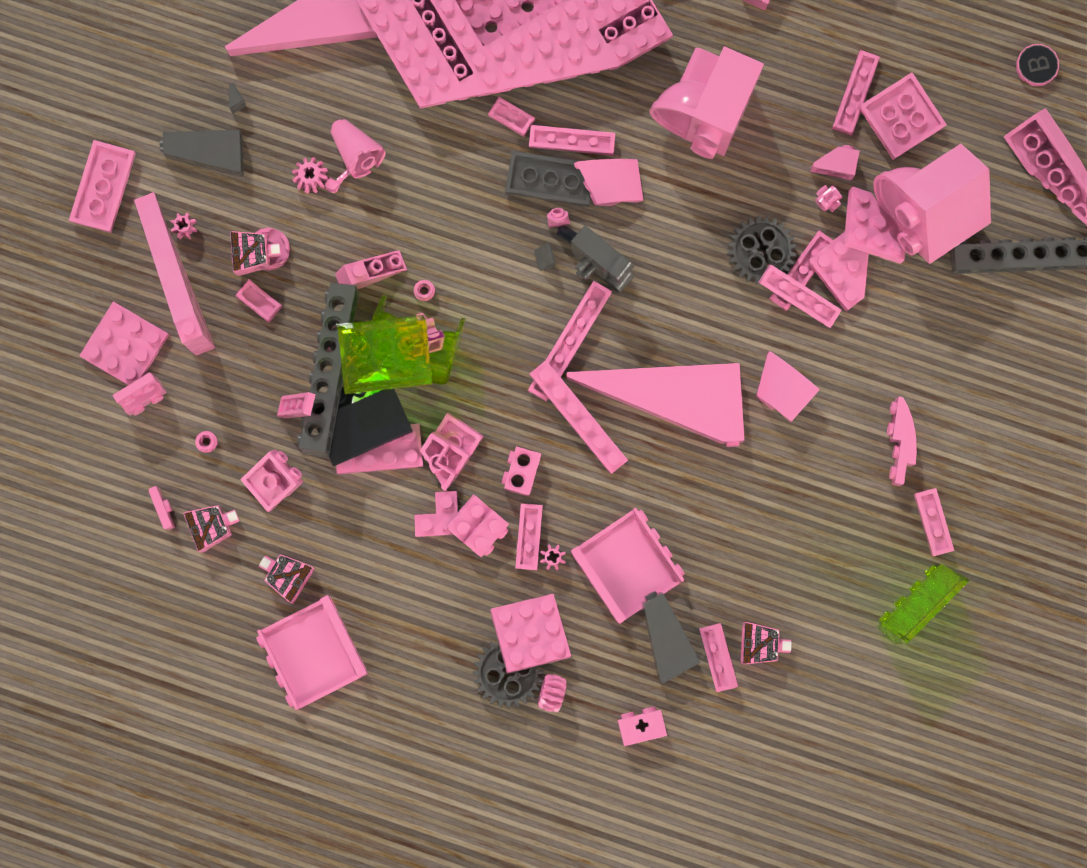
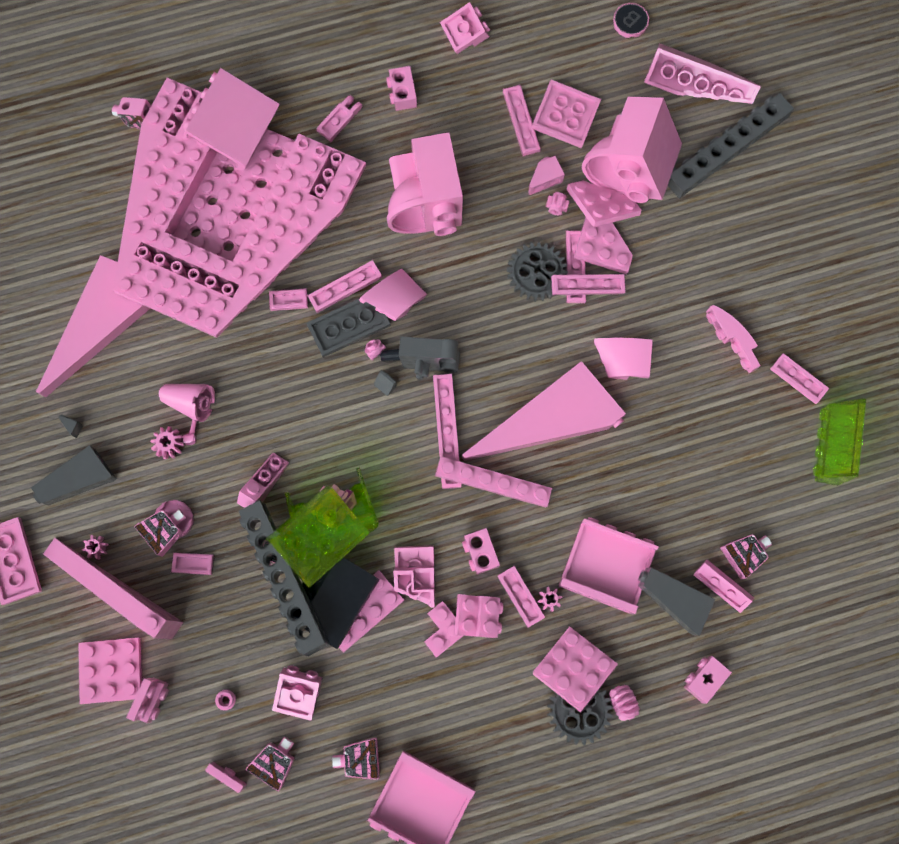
camera: 35 degrees left, 5 degrees down
(296, 405) = (277, 622): bright pink tile -> none
(424, 284) = (308, 465): bright pink plate -> none

